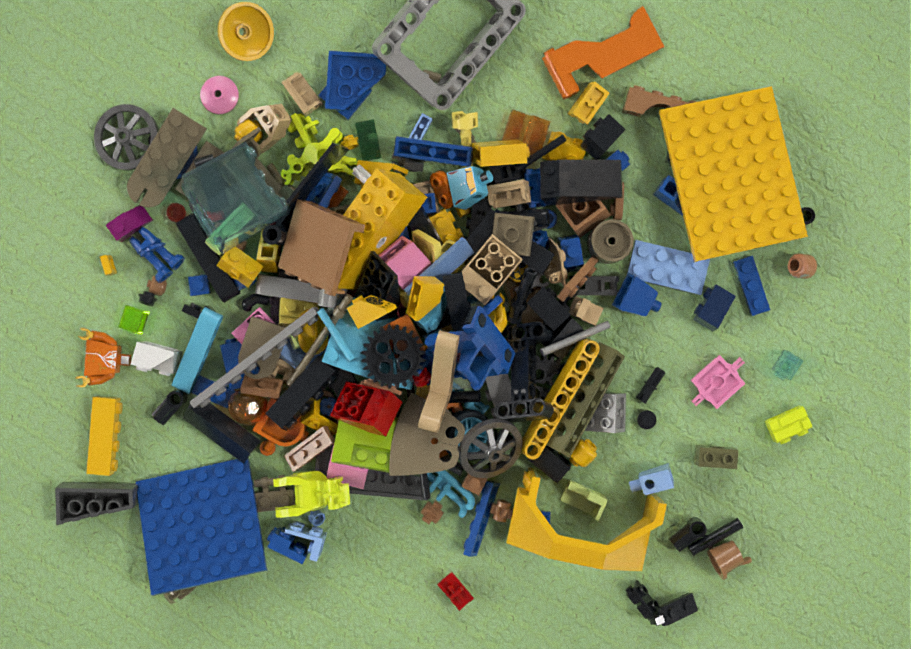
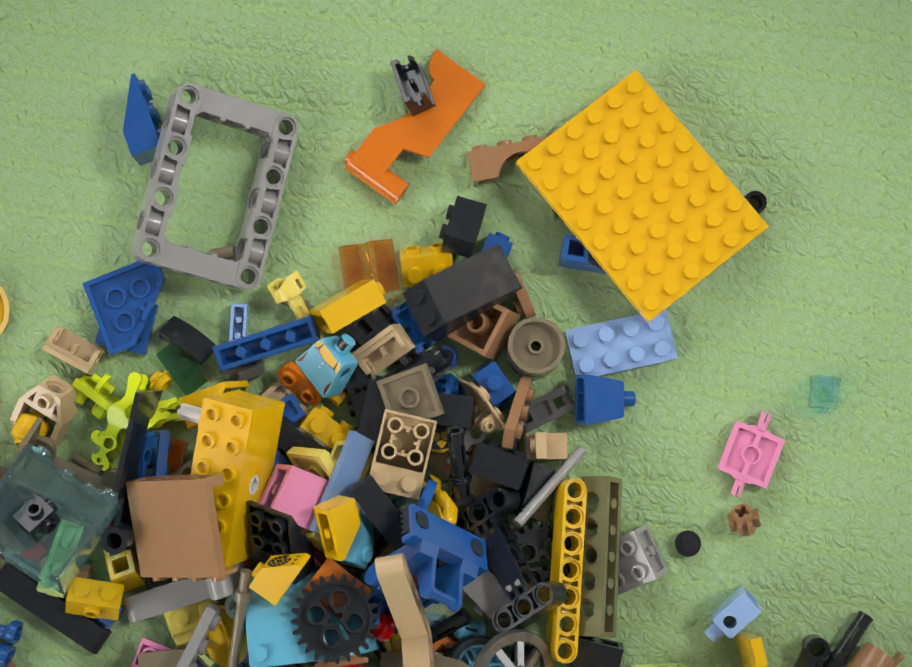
camera: 25 degrees left, 5 degrees down
(199, 285) = (56, 647): blue plate -> none
(227, 194) = (37, 517): none -> black brick
(254, 299) = (131, 632): black arm -> none
(274, 310) = (163, 631): axle -> none
(336, 335) = (252, 626): medium azure bar -> none
(382, 125) = (188, 339): none -> black slope
(541, 152) = (398, 282): black bar -> none
(583, 453) = (631, 623): yellow head -> none
(588, 102) = (427, 194): yellow hinge -> none
(615, 24) = (413, 85): none -> black hinge
(650, 385) = (671, 498): black axle -> none
(691, 422) = (744, 520): none -> medium nougat gear
(714, 307) = (700, 366): dark blue brick -> none
(716, 457) = (795, 547): olive brick -> none
(751, 285) = (733, 318): blue plate -> none
(788, 424) = (863, 464): neon yellow brick -> none
(802, 266) = (781, 264): nougat head -> none

